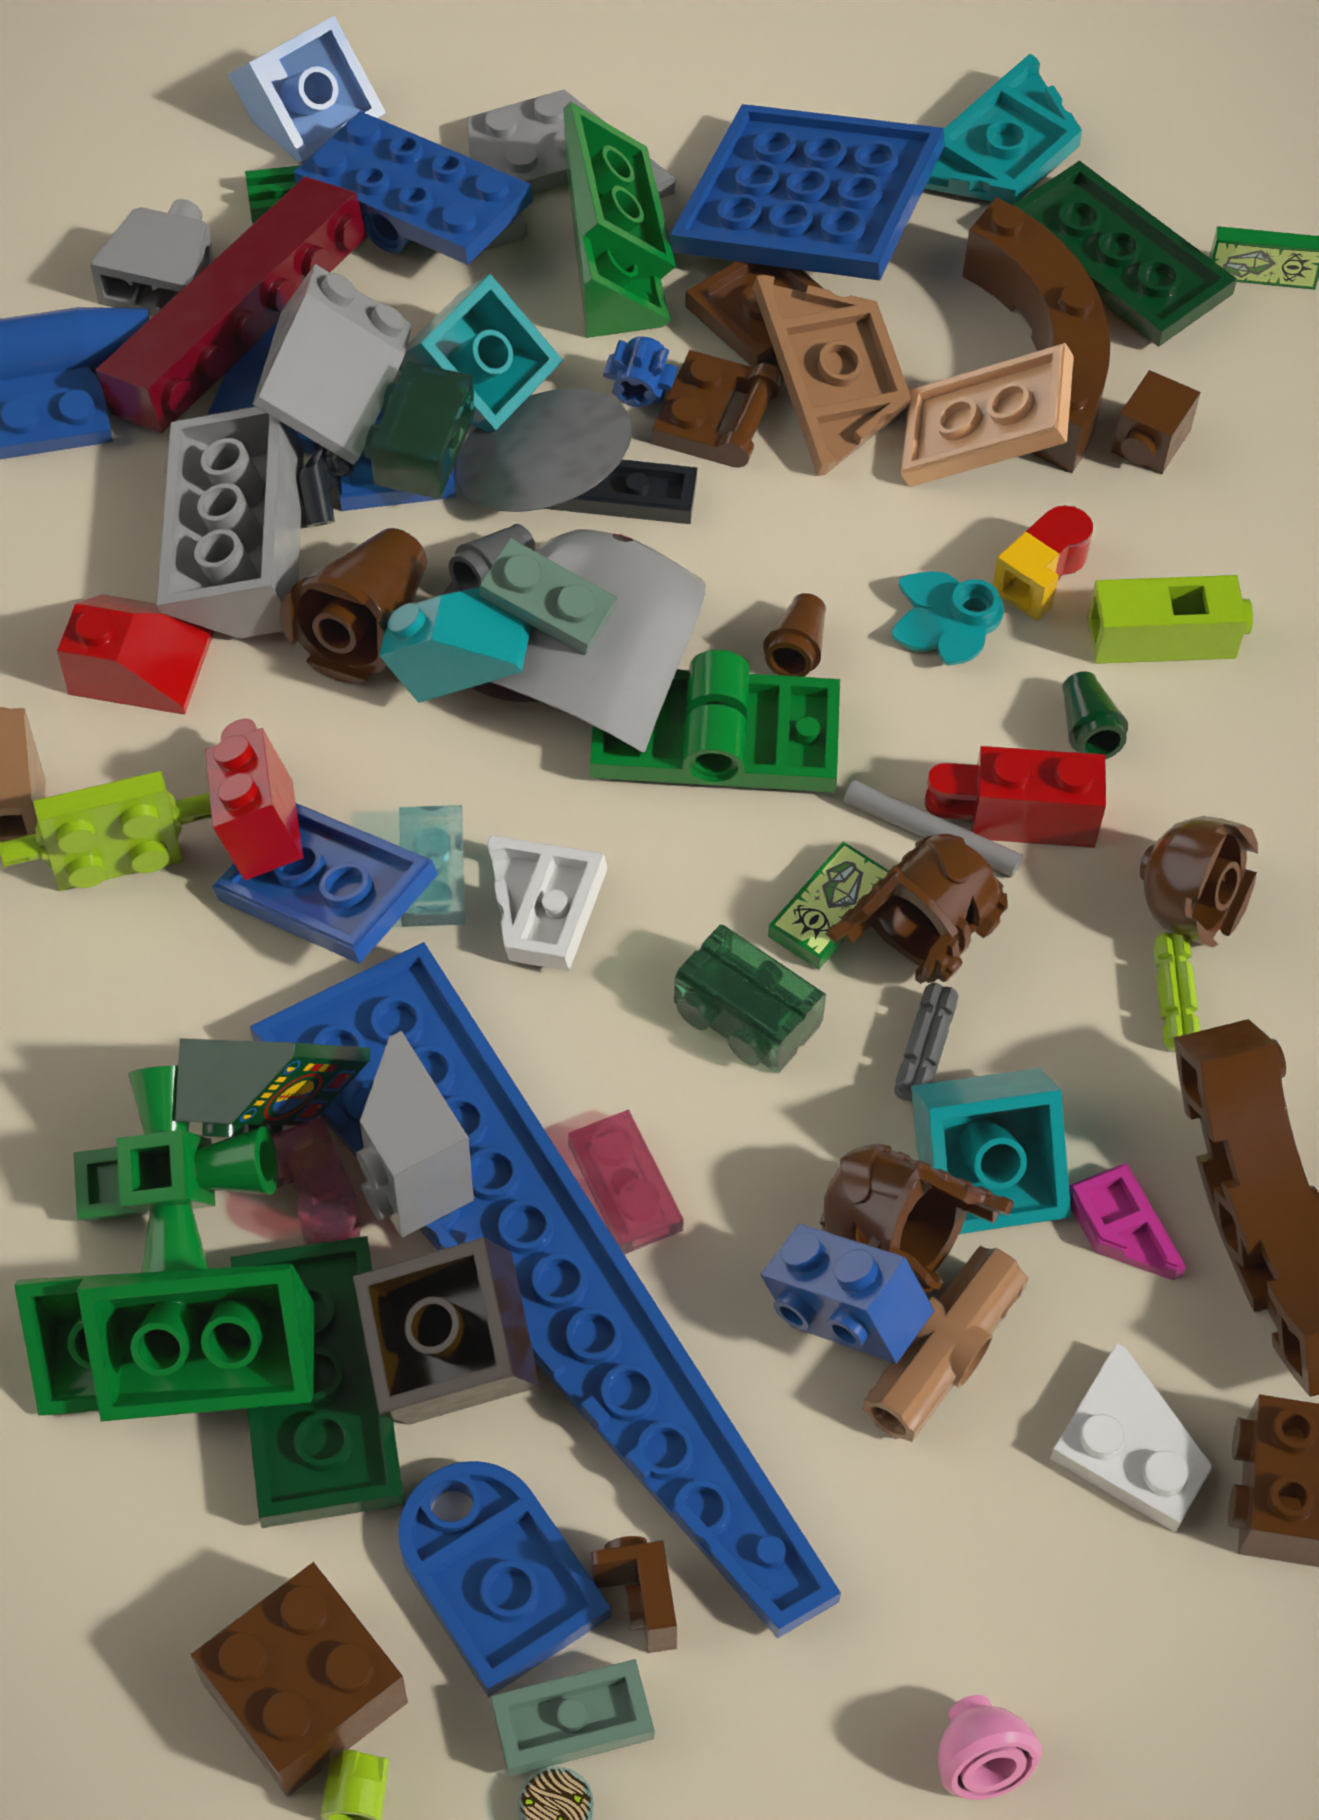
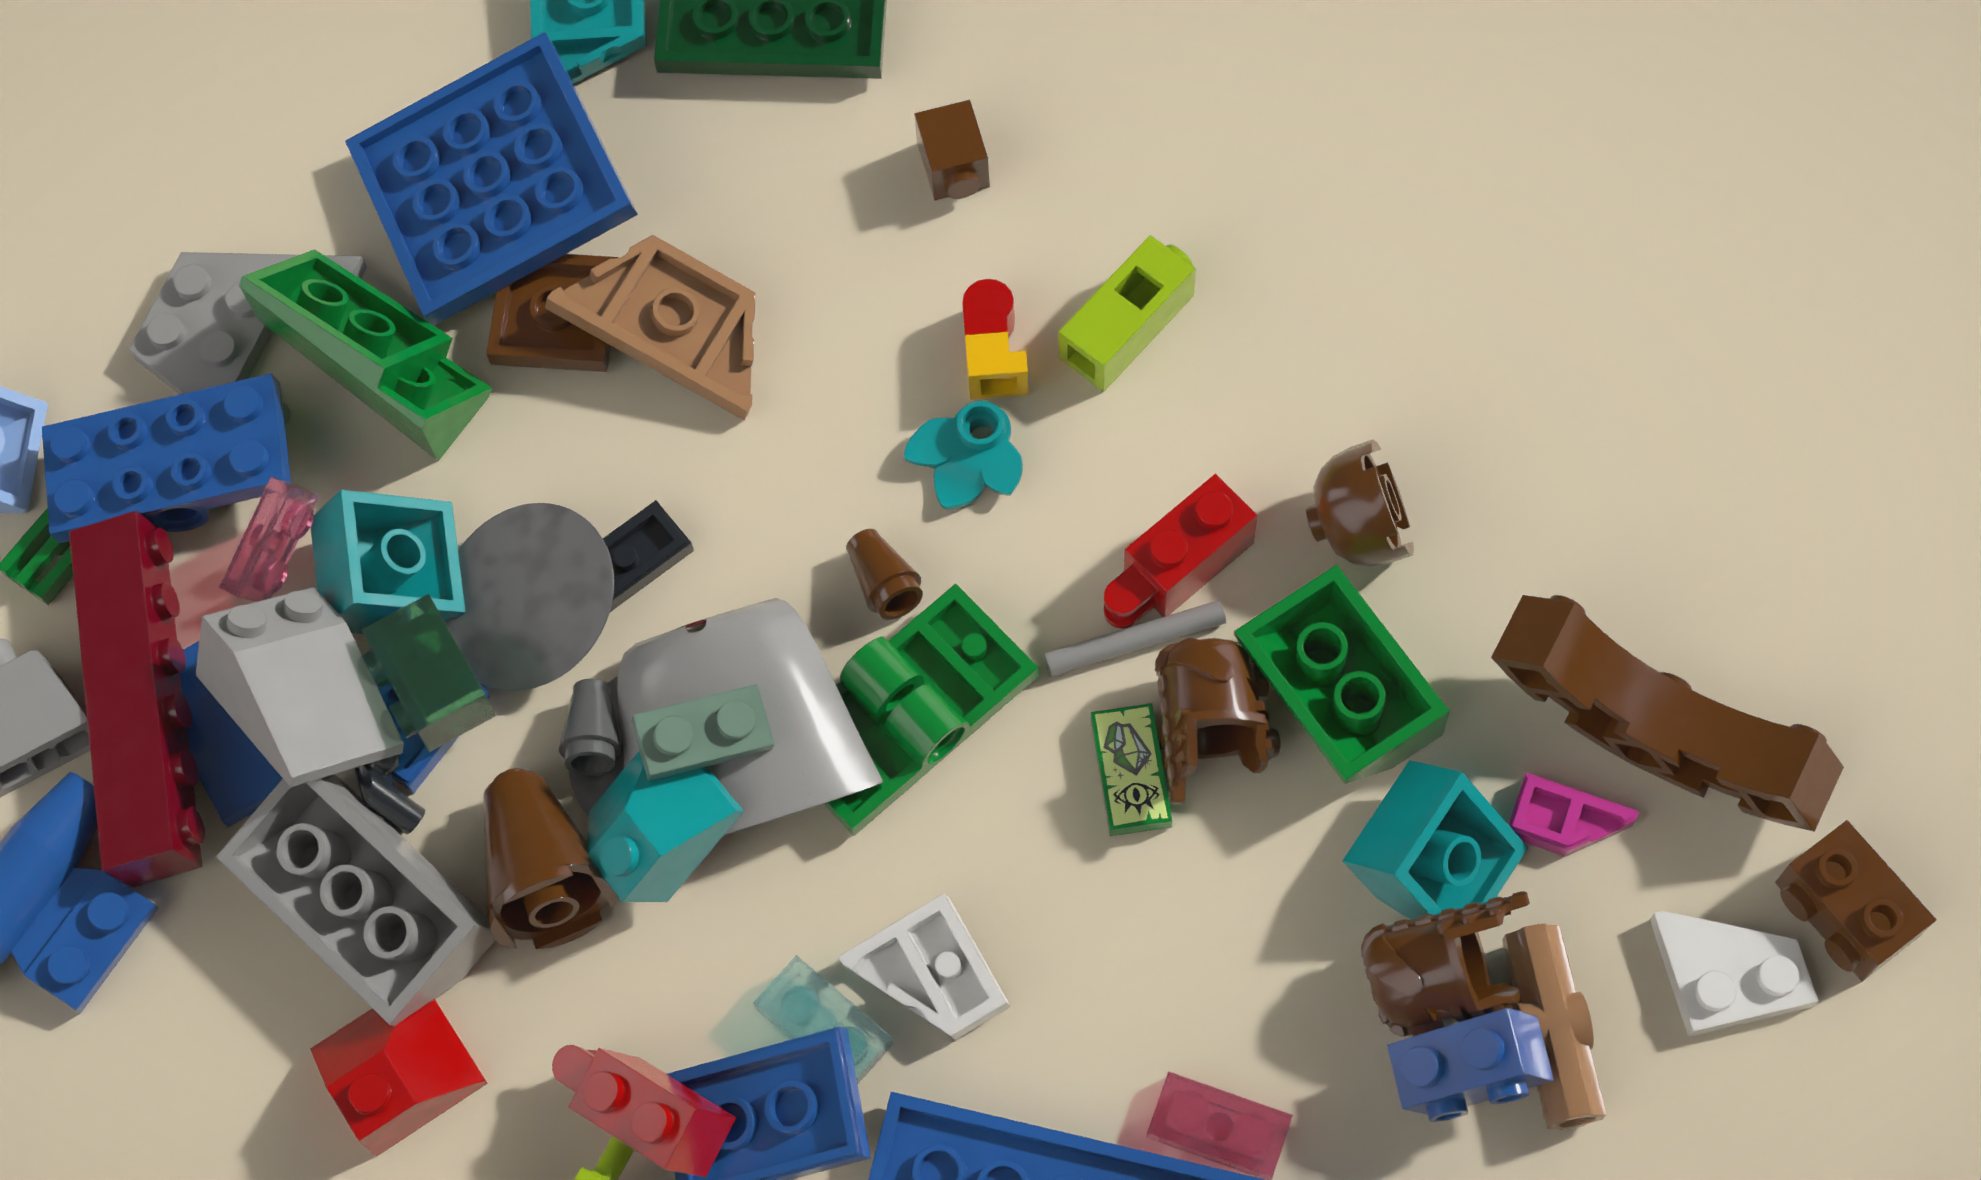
camera: 40 degrees left, 10 degrees up
(422, 277) = (269, 541): none -> clear pink plate
(640, 371) = (529, 459): blue gear -> none
(700, 403) = (595, 441): reddish brown plate -> none
(748, 999) = (1161, 905): clear green brick -> none
(926, 1039) = (1306, 812): dark grey axle -> none
(988, 415) = (838, 260): light nougat tile -> none
(1047, 968) = (1344, 677): none -> green slope
(1050, 288) = (805, 123): reddish brown brick -> none
(1092, 717) = (1157, 443): dark green cone -> none
(1175, 987) = (1426, 607): lime axle -> none

